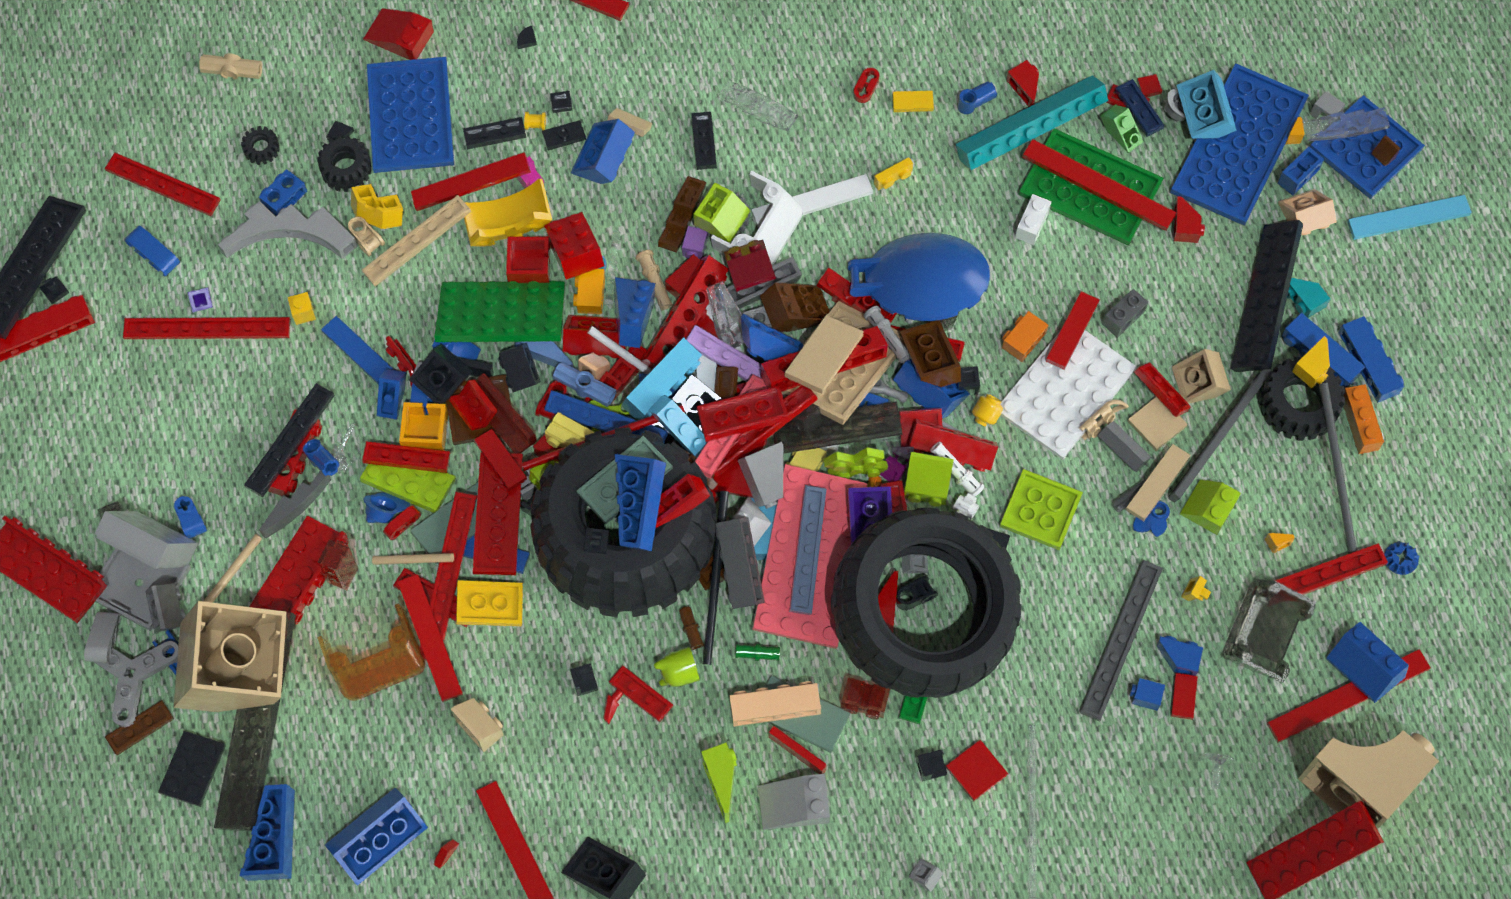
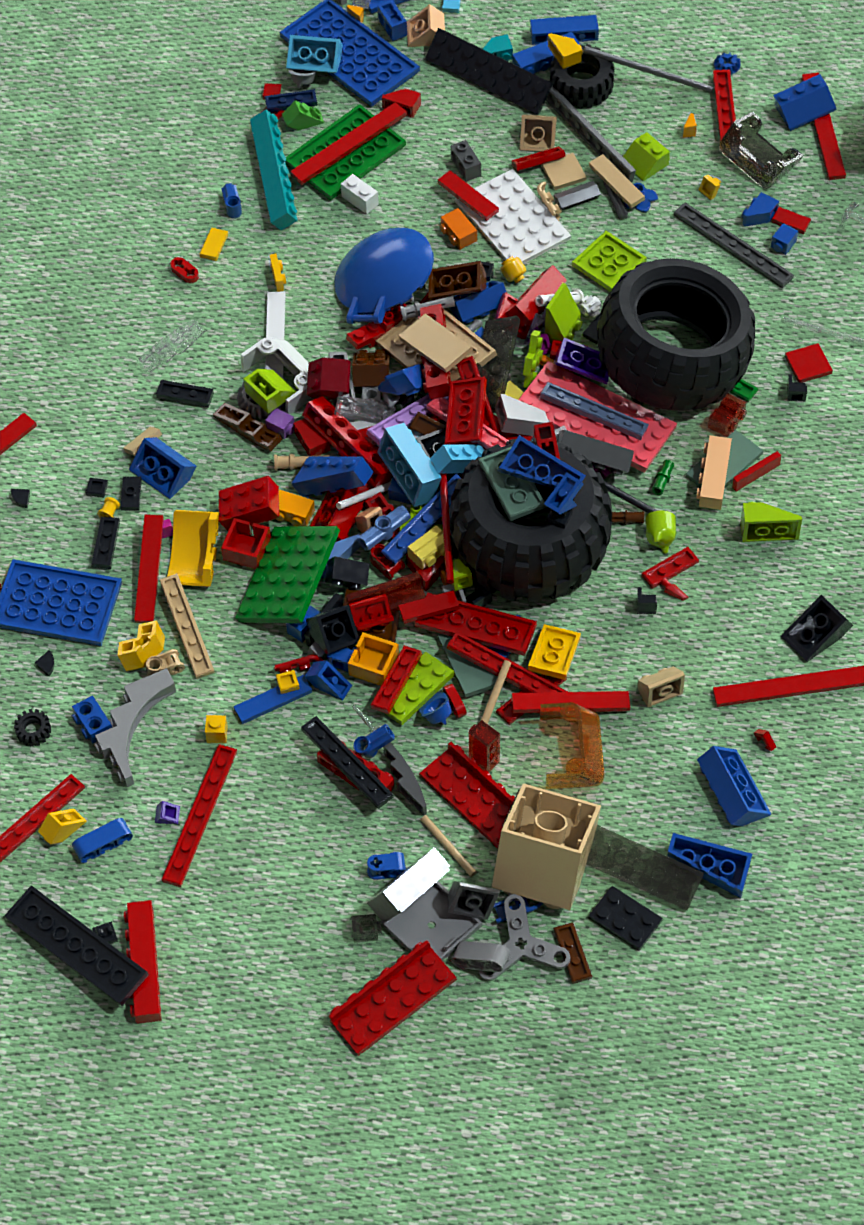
camera: 70 degrees left, 10 degrees down
(158, 209) = (60, 825): none -> yellow slope
(339, 150) = (88, 674): black tyre -> none
(376, 355) = (287, 682): none -> yellow tile
(604, 533) = (562, 496): none -> blue slope
(794, 802) = (798, 483): light grey slope -> none
(1024, 81) = (235, 164): red slope -> none
(1362, 419) = (619, 46): orange brick -> none

